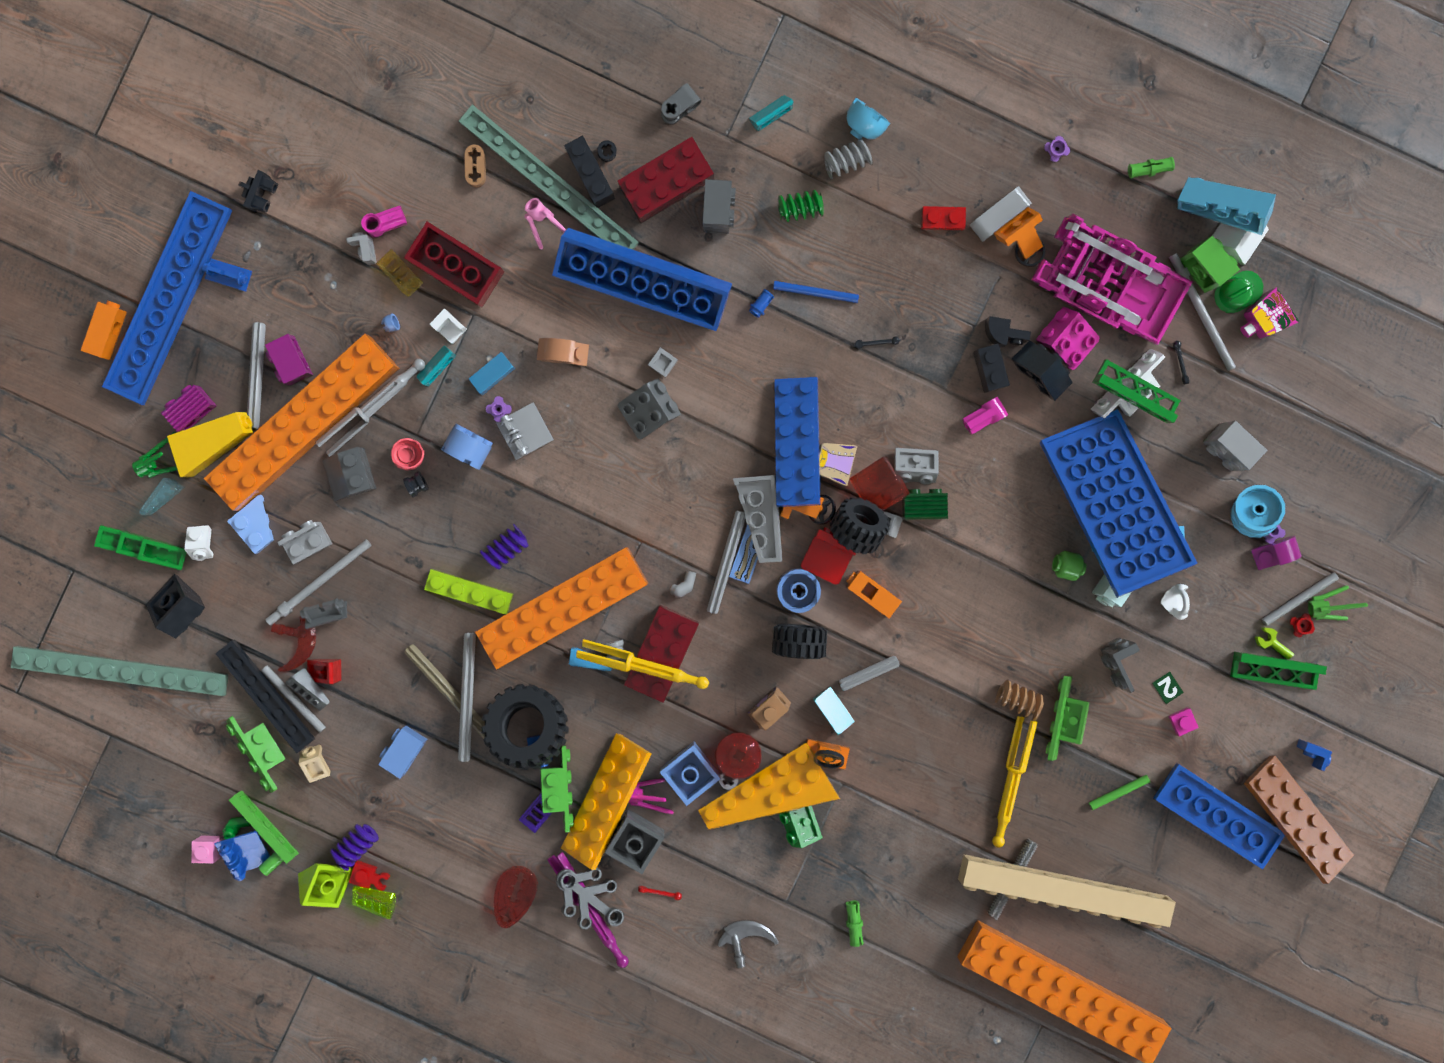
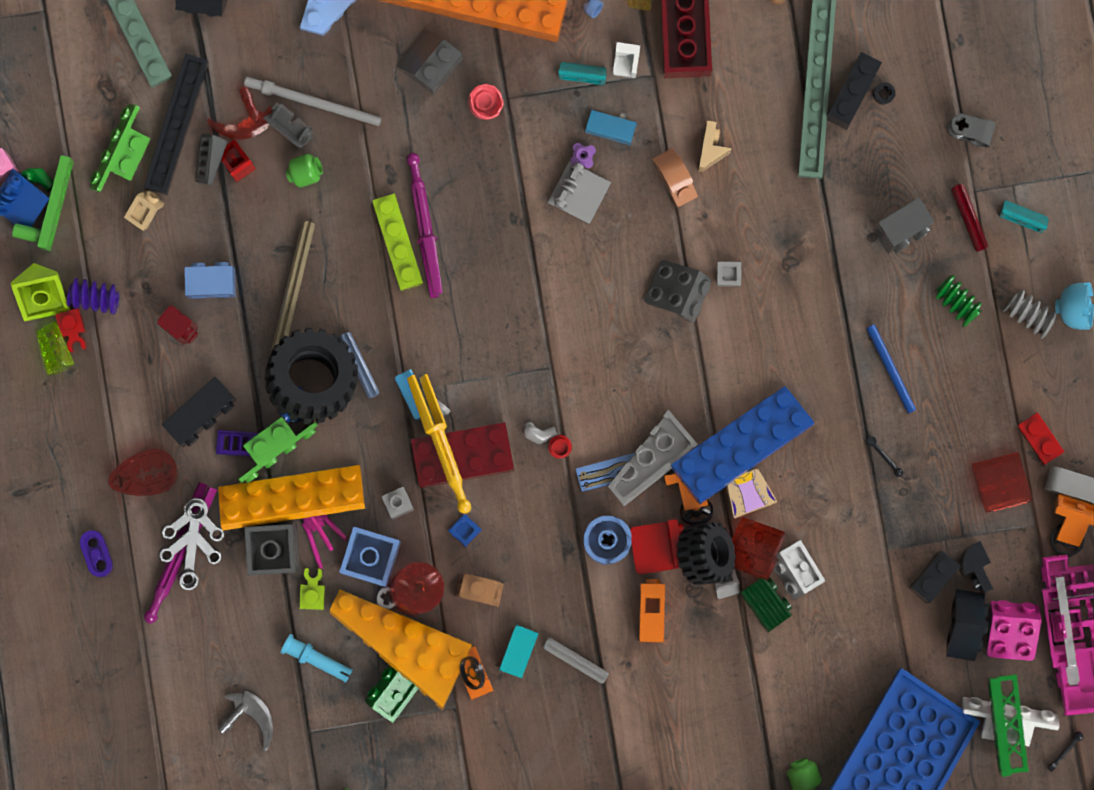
camera: 55 degrees right, 5 degrees down
(294, 700) = (190, 151): light grey bar -> none
(305, 542) = (341, 64): light grey bracket -> none
(366, 624) = (304, 170): none -> bright green head
(370, 407) = (504, 40): light grey piece -> none
(415, 484) = (463, 128): black wheel -> none
(419, 799) = (178, 325): none -> dark red brick
(466, 697) = (300, 305): light grey axle -> none
(467, 446) = (530, 150): medium blue brick -> none
(481, 569) = (426, 238): none -> magenta piece
(496, 825) = (199, 413): none -> black brick
(505, 548) = (461, 247): dark purple piece -> none
(538, 212) = (785, 70): bright pink plant -> none
(542, 682) = (363, 372): none -> sand blue axle
(548, 972) = (95, 554): none -> dark purple plate
(561, 608) = (442, 335): orange brick -> none
(563, 312) = (710, 153): none -> tan slope
(641, 279) = (790, 203): blue brick -> none
(664, 725) = (398, 503): none -> light grey brick
(666, 179) = (895, 163): dark red brick -> none
(677, 896) = (246, 626): red hinge -> none
(688, 832) = (312, 595): none -> lime plate
(704, 576) = (560, 446): none -> red plate
(718, 689) = (464, 530): none -> blue tile
(726, 562) = (586, 457): light grey axle -> none
(727, 867) = (305, 653): none -> medium azure pin
(744, 153) = (969, 217): none -> dark red axle
(757, 309) = (845, 326): blue pin -> none
(799, 641) = (562, 572): black tyre -> none
(956, 269) = (1002, 482): none -> clear red slope
(988, 414) = (893, 604): dark pink piece -> none

